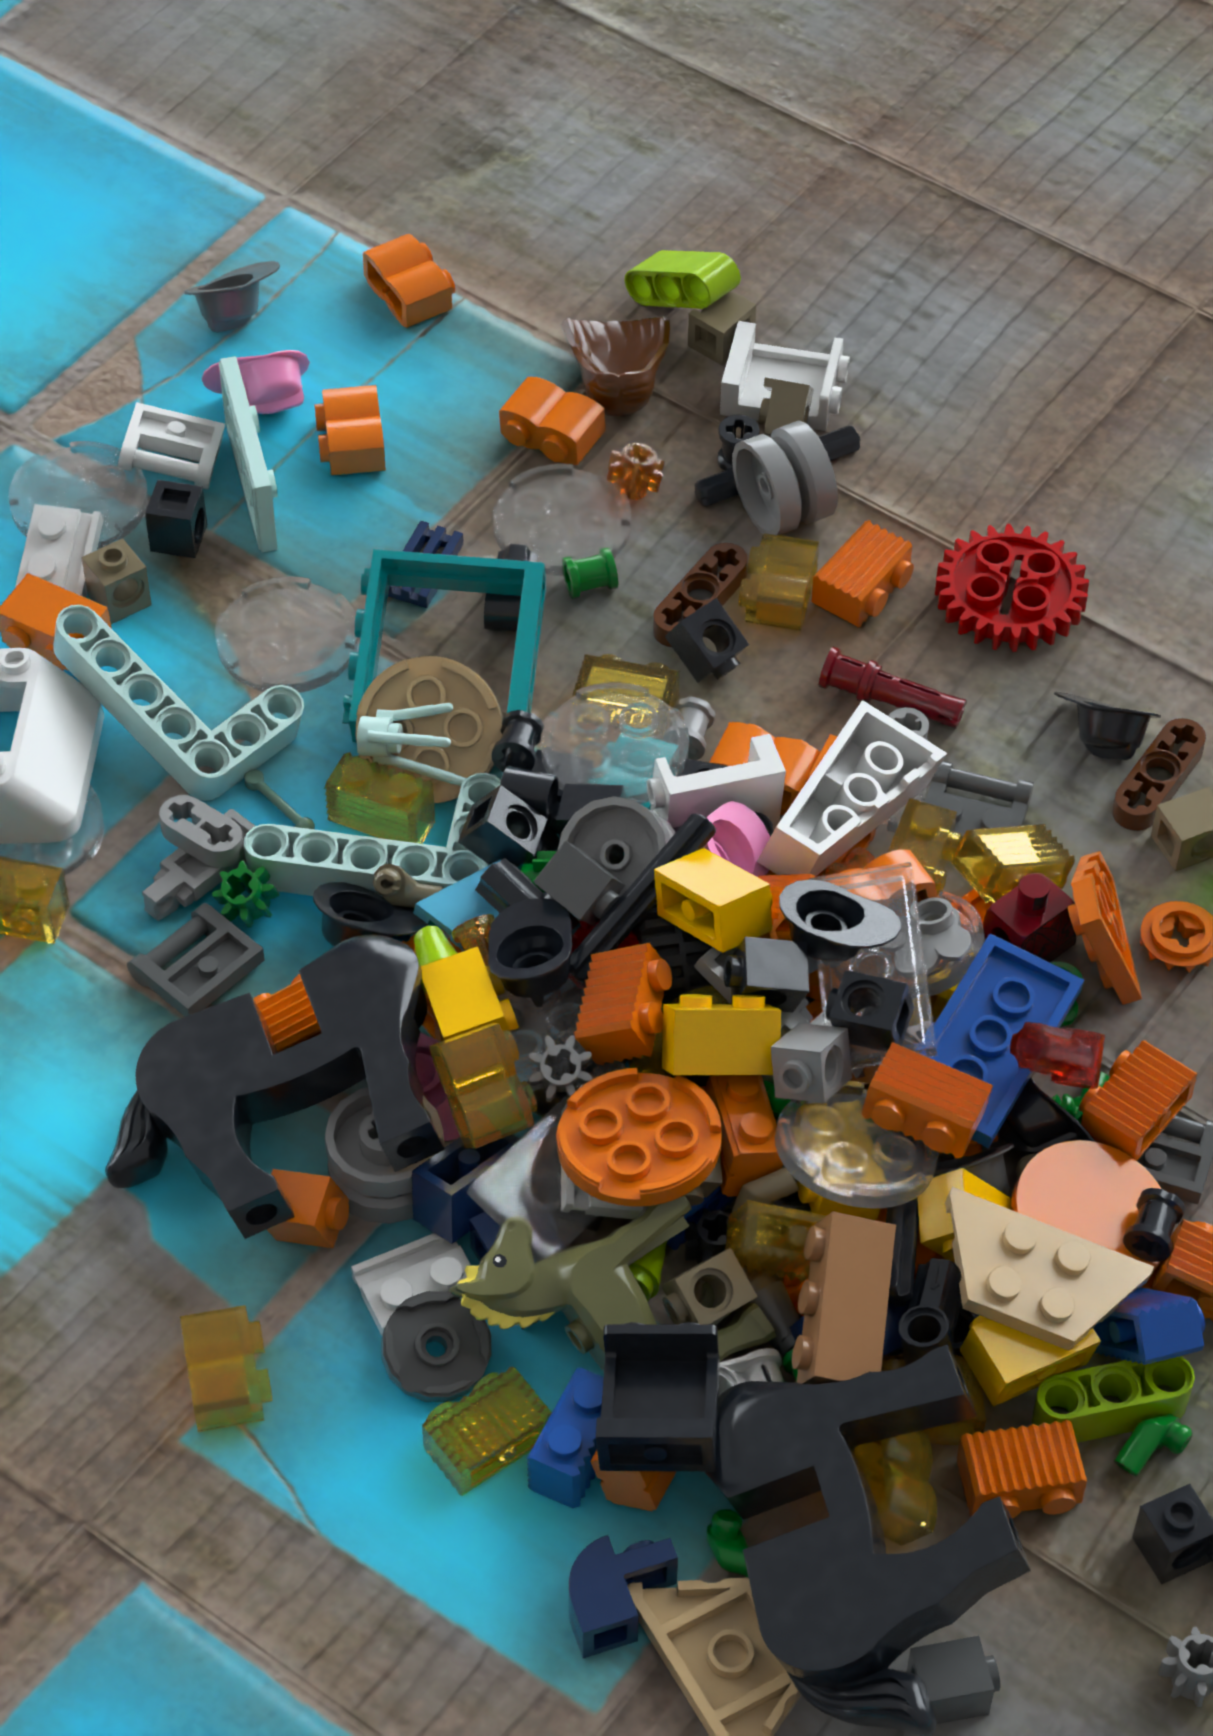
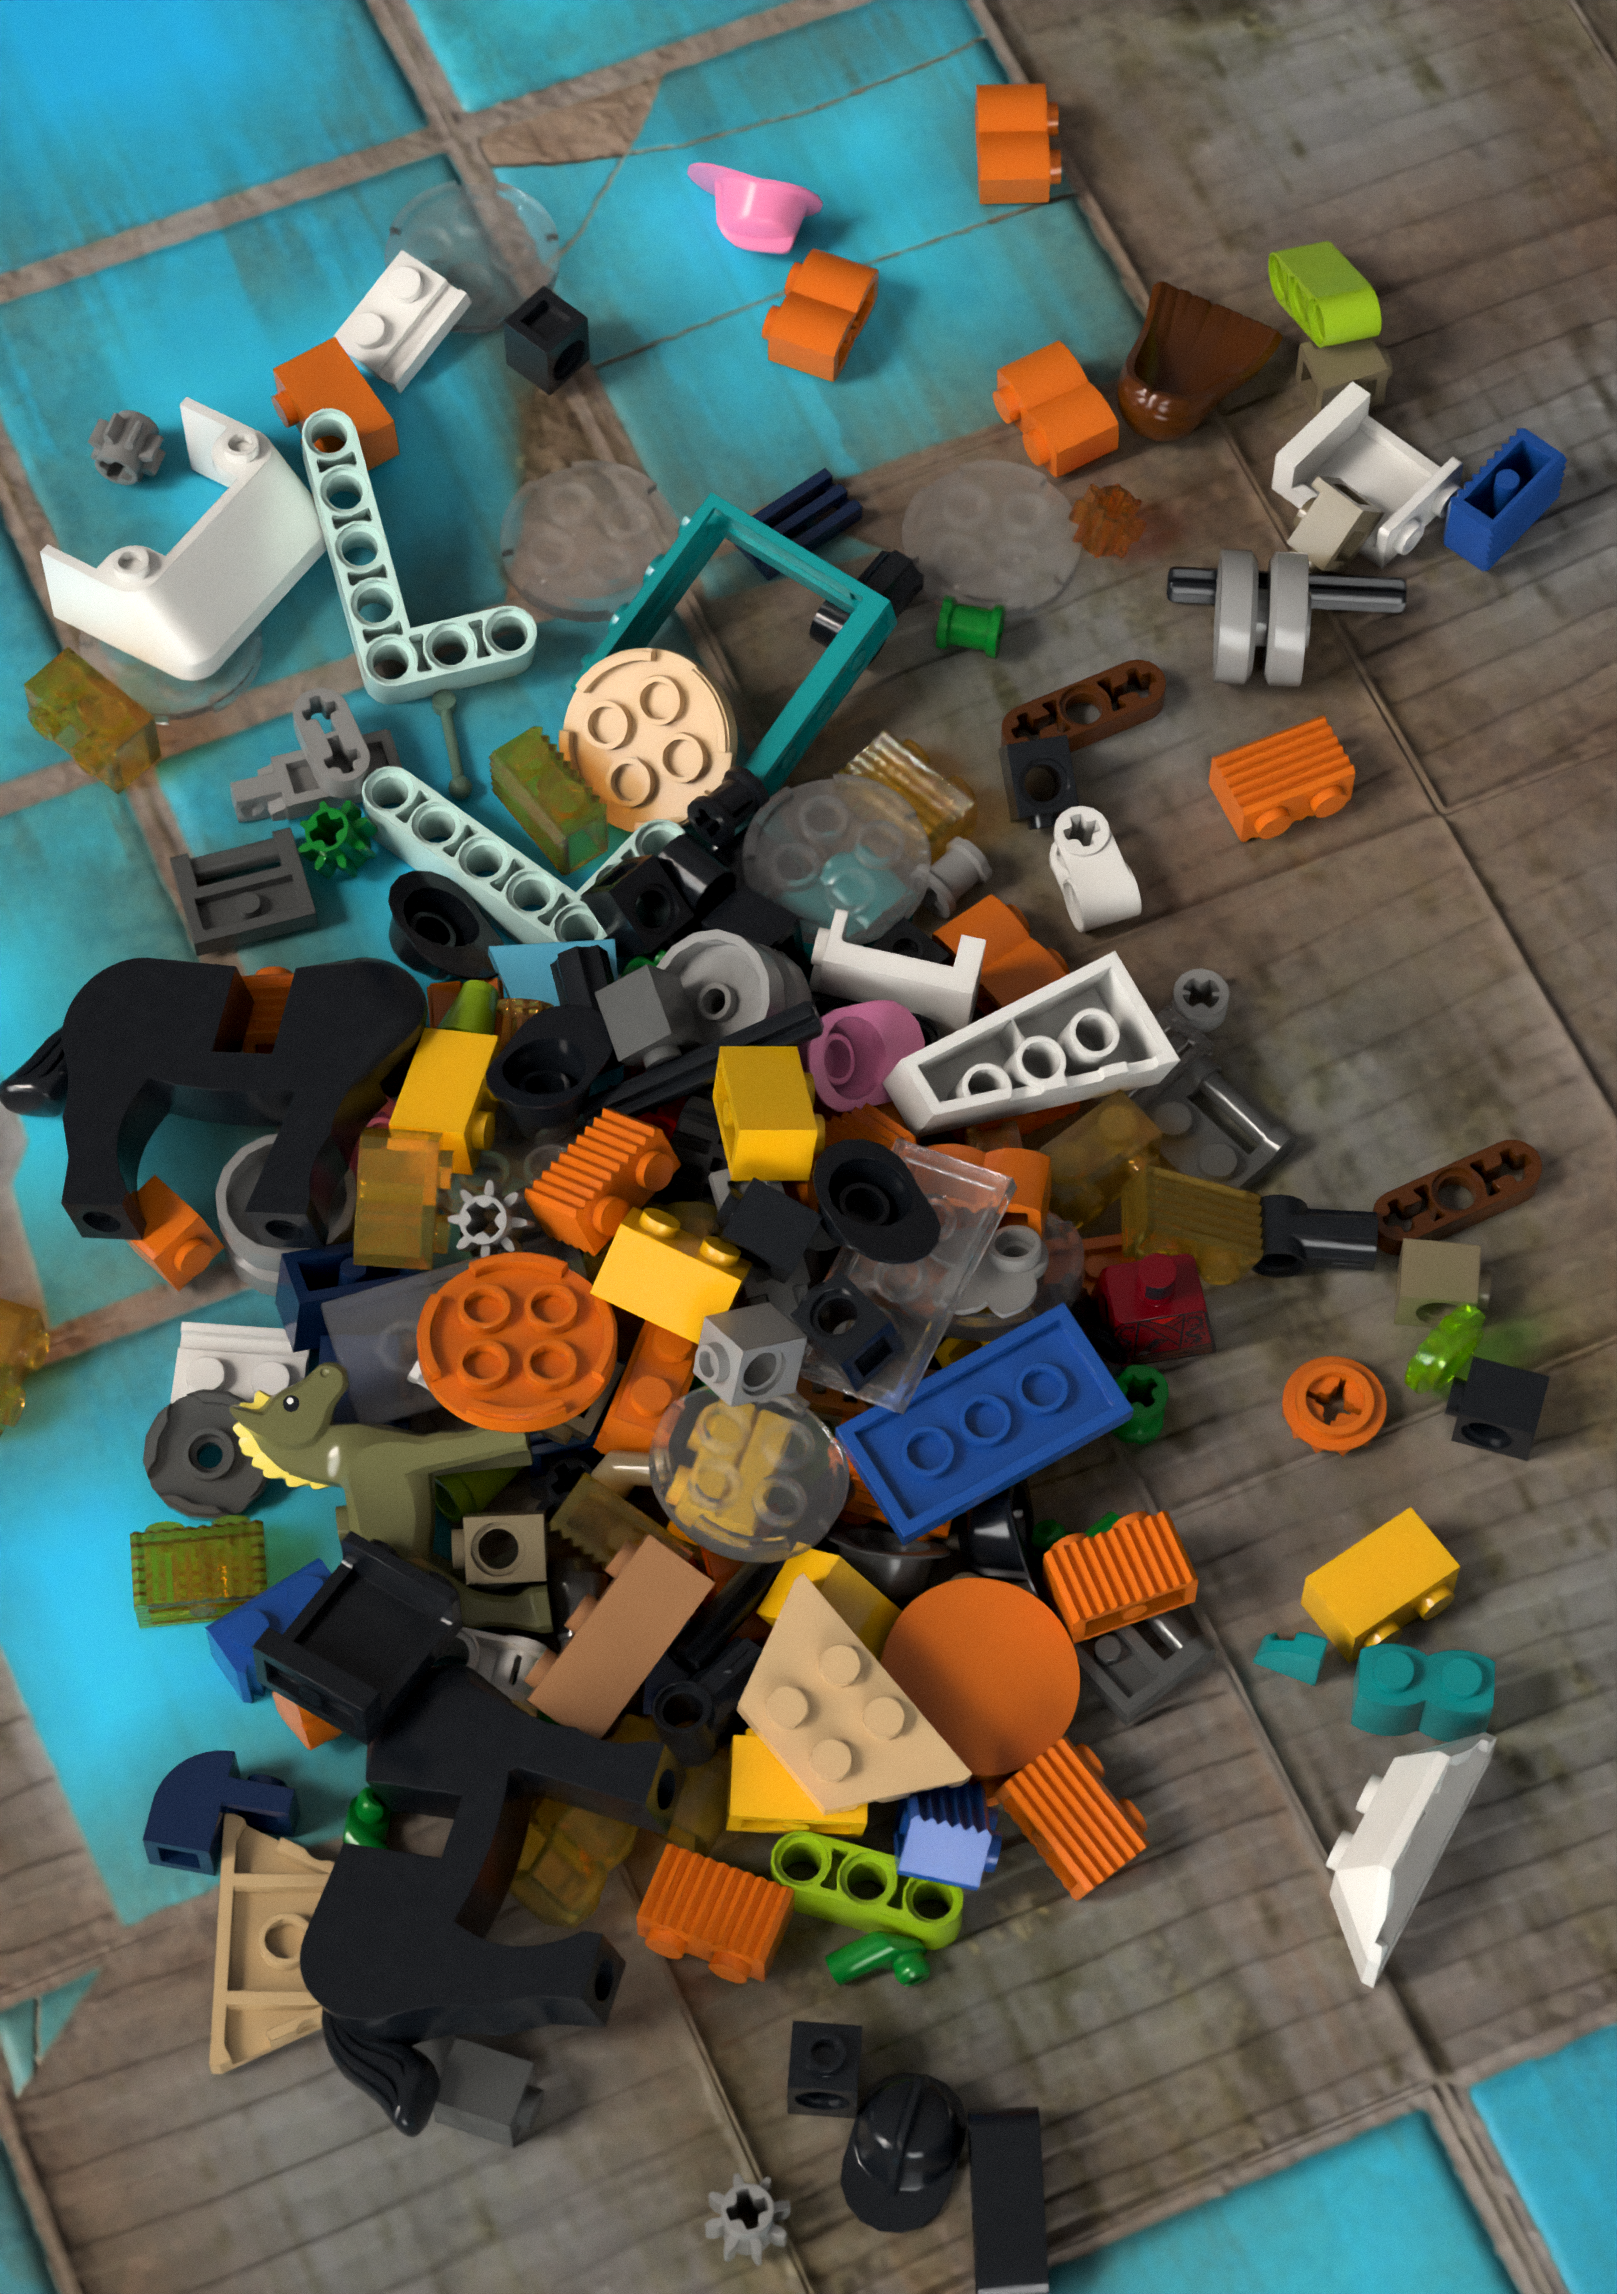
camera: 30 degrees right, 10 degrees up
(117, 580) = (437, 387): dark tan brick -> none
(173, 435) = (615, 228): white plate -> none
(233, 297) = (795, 74): dark grey piece -> none
(242, 428) = (672, 295): light aqua plate -> none
(382, 737) = (584, 732): light aqua plant -> none
(400, 887) = (495, 917): dark tan arm -> none
(727, 435) = (1244, 531): black bush -> none
(779, 581) = (1173, 747): clear yellow brick -> none
(784, 686) = (1092, 871): none -> white piece
(870, 682) = (1198, 920): dark red pin -> none
(882, 350) = (1503, 499): none -> blue brick
(926, 1100) = (843, 1461): orange brick -> none
(1044, 598) = (1406, 847): red gear -> none
(1065, 1054) = (1048, 1488): clear red piece -> none
(1102, 926) = (1231, 1342): orange plate -> none
(1103, 831) = (1314, 1238): none -> black piece
(1108, 729) = (1432, 1103): black piece -> none
(1154, 1225) = (1029, 1725): black bush -> none

